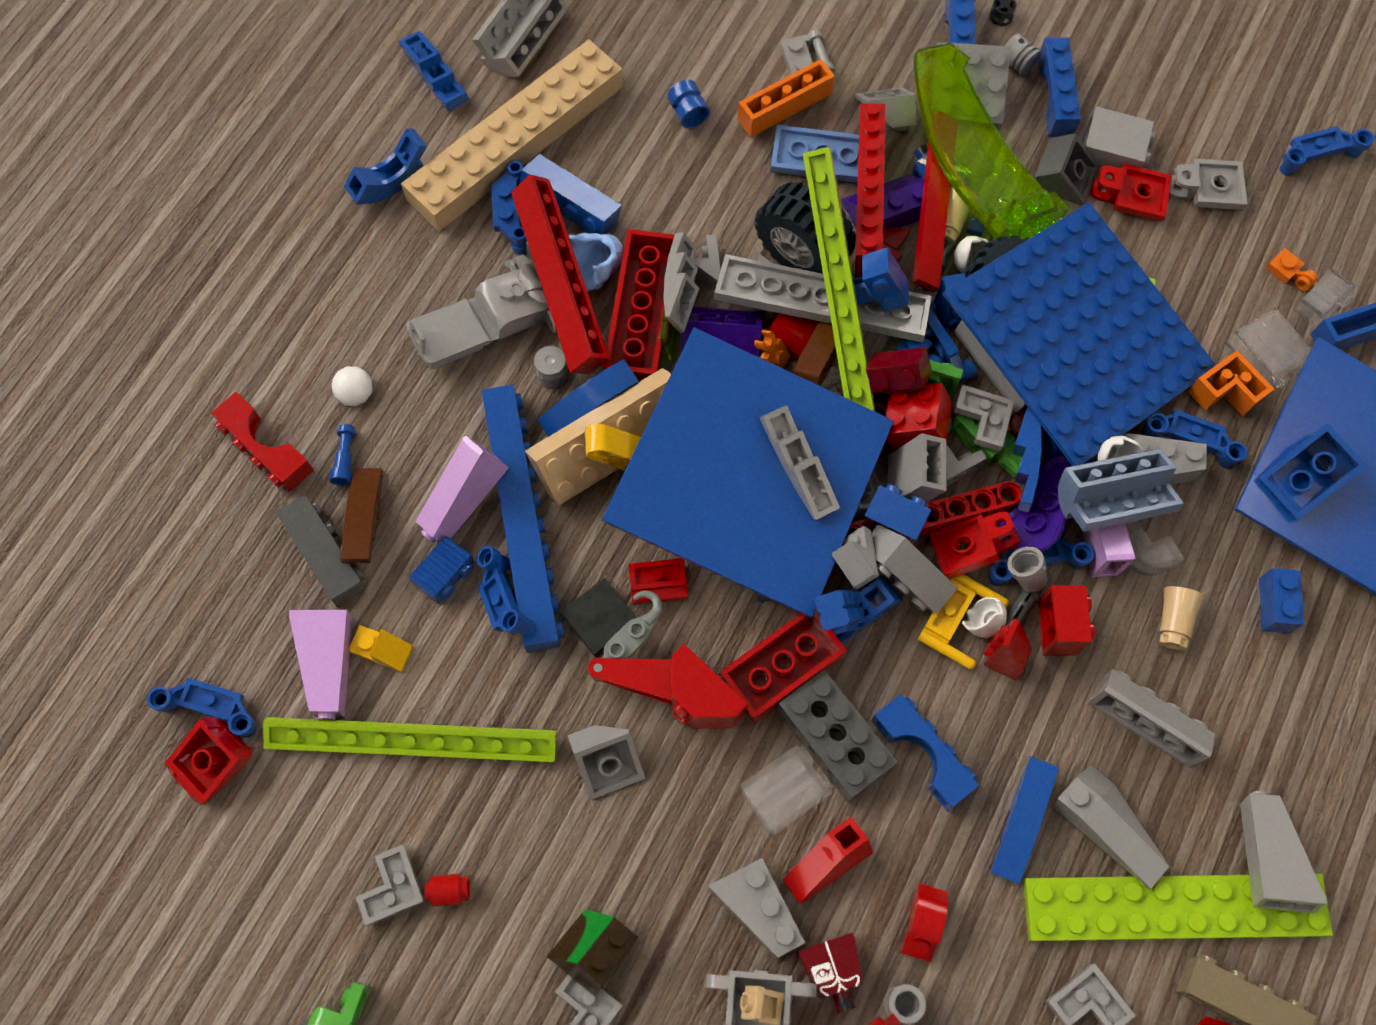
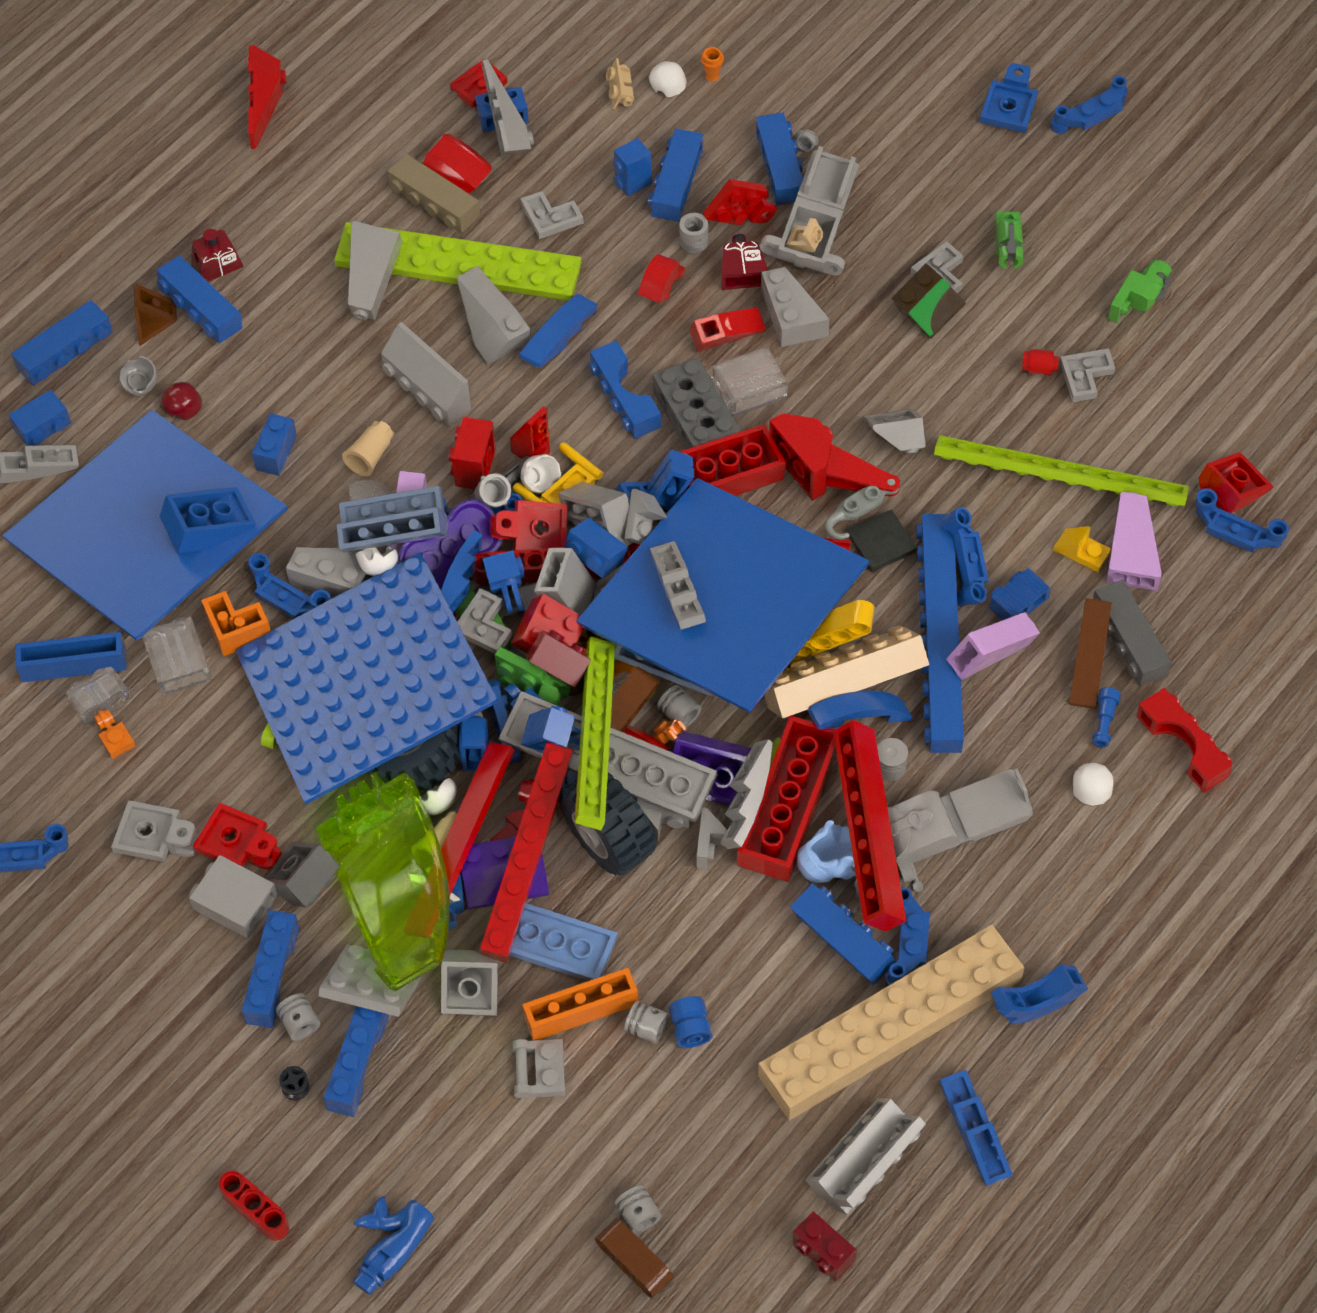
camera: 165 degrees left, 10 degrees down
(731, 99) = (646, 1022): none -> light grey piece
(983, 460) = (504, 574): none -> blue brick

